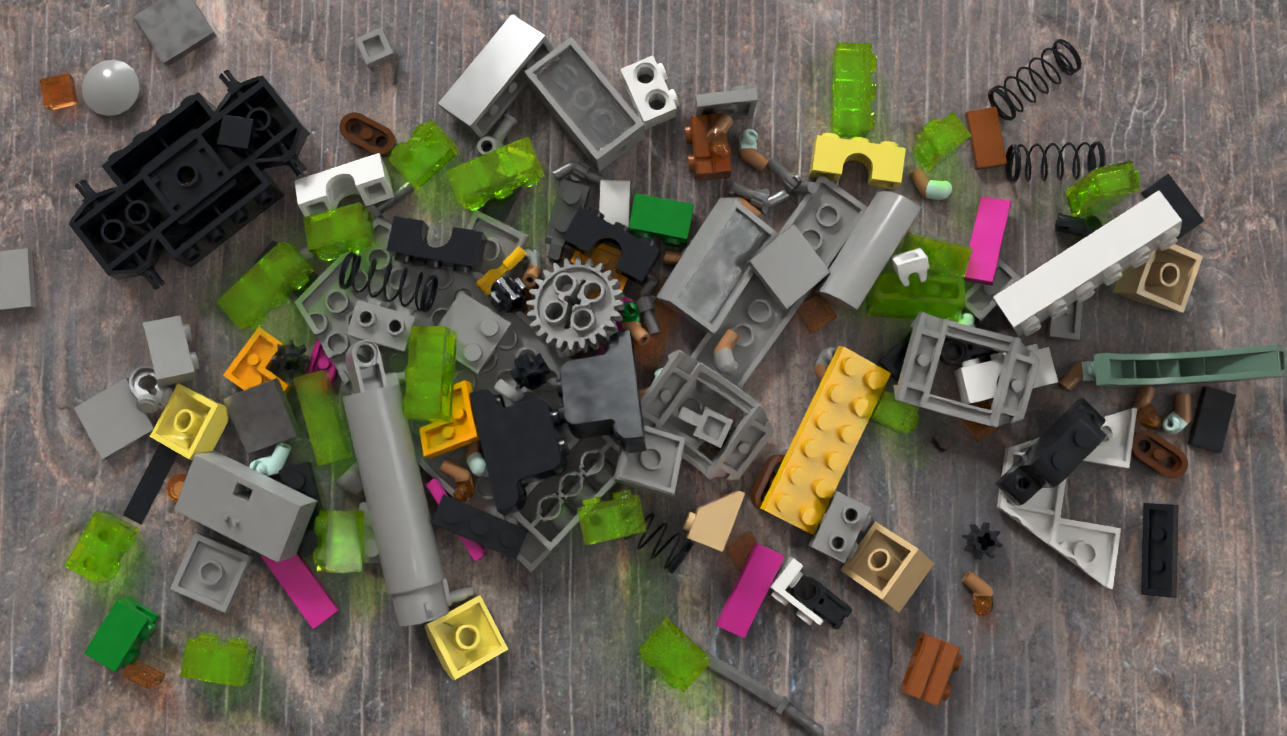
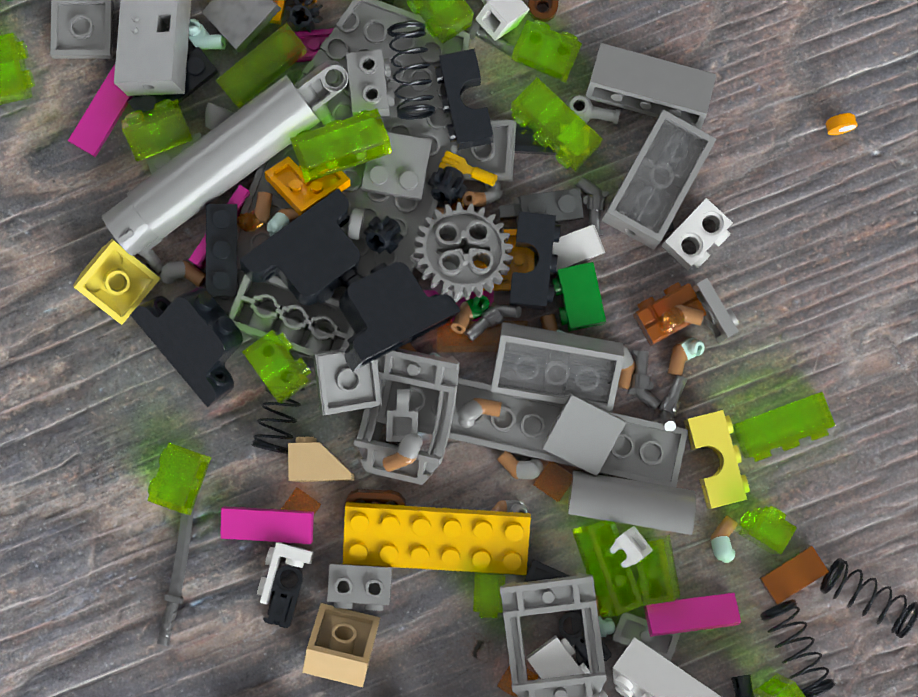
camera: 60 degrees right, 0 degrees up
(480, 570) = (181, 269): none -> arm
(550, 586) = (194, 339): none -> black brick
(741, 434) = (406, 453): none -> arm
(794, 338) = (520, 469): none -> arm

